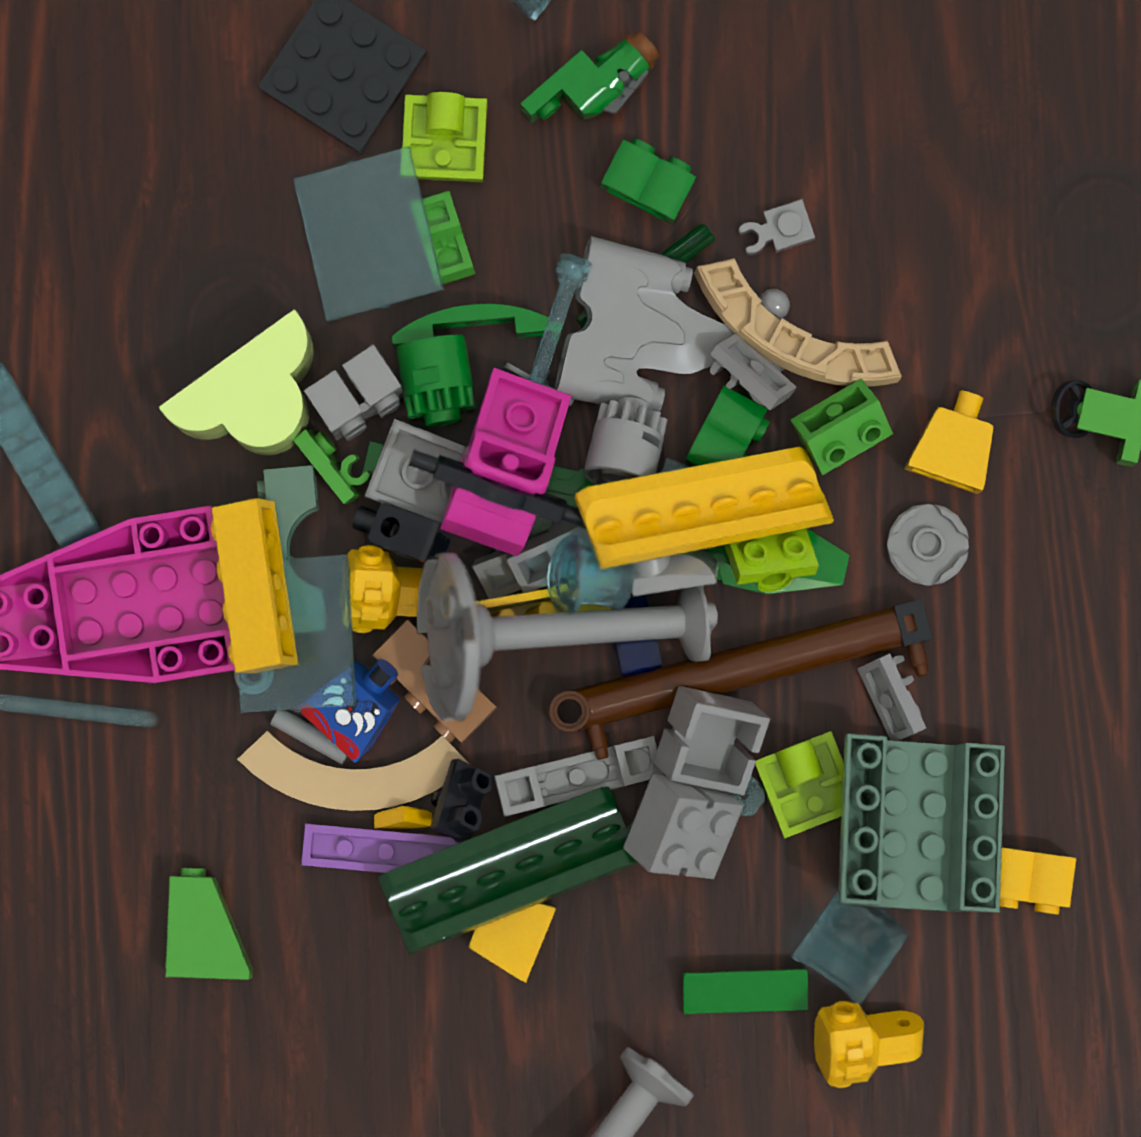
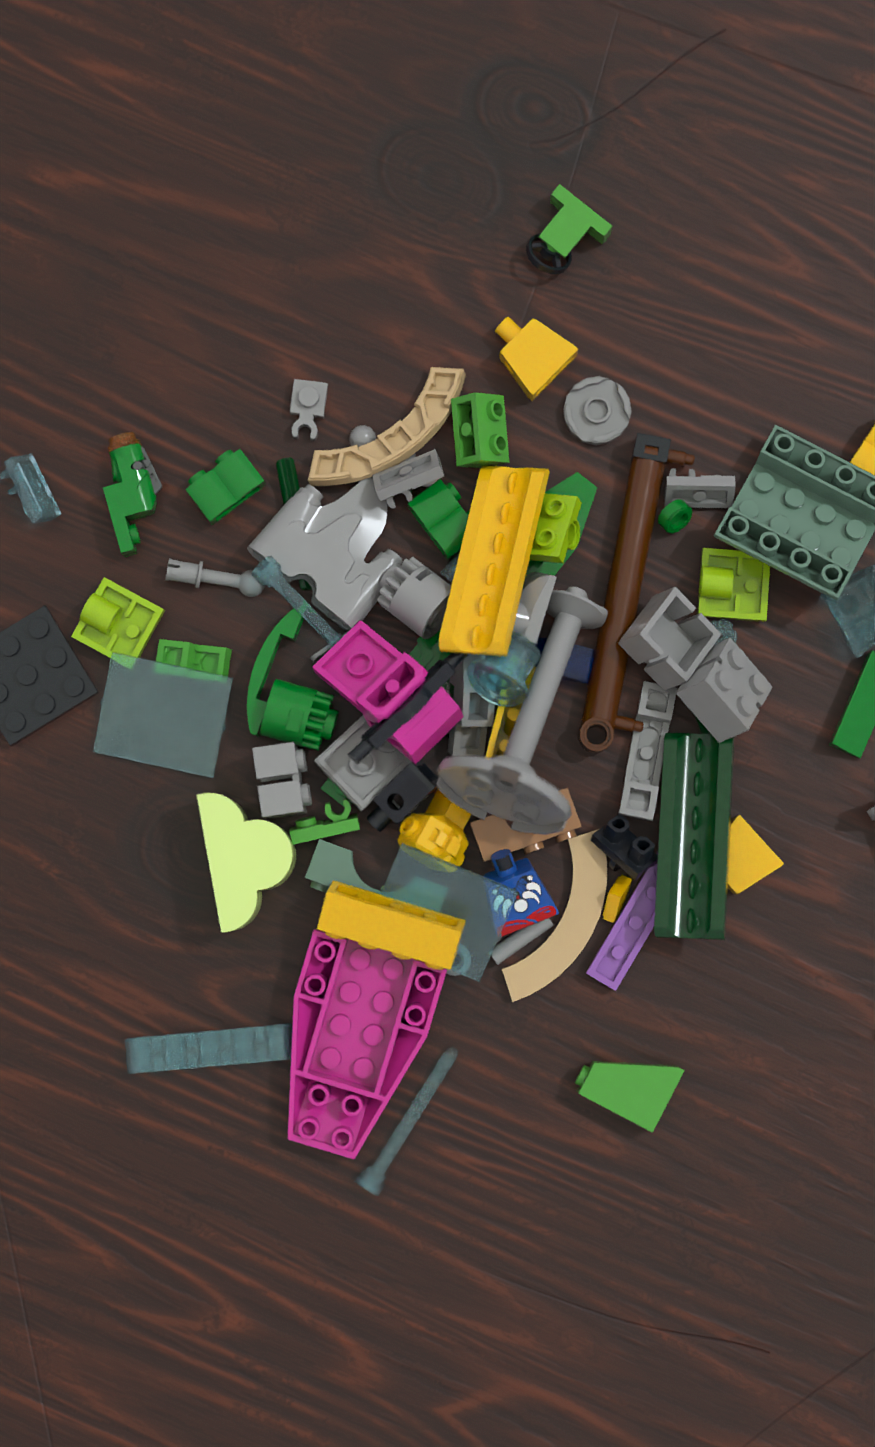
camera: 60 degrees left, 0 degrees up
(537, 194) = (195, 574): none -> light grey pin
(851, 684) = (675, 516): none -> green tile

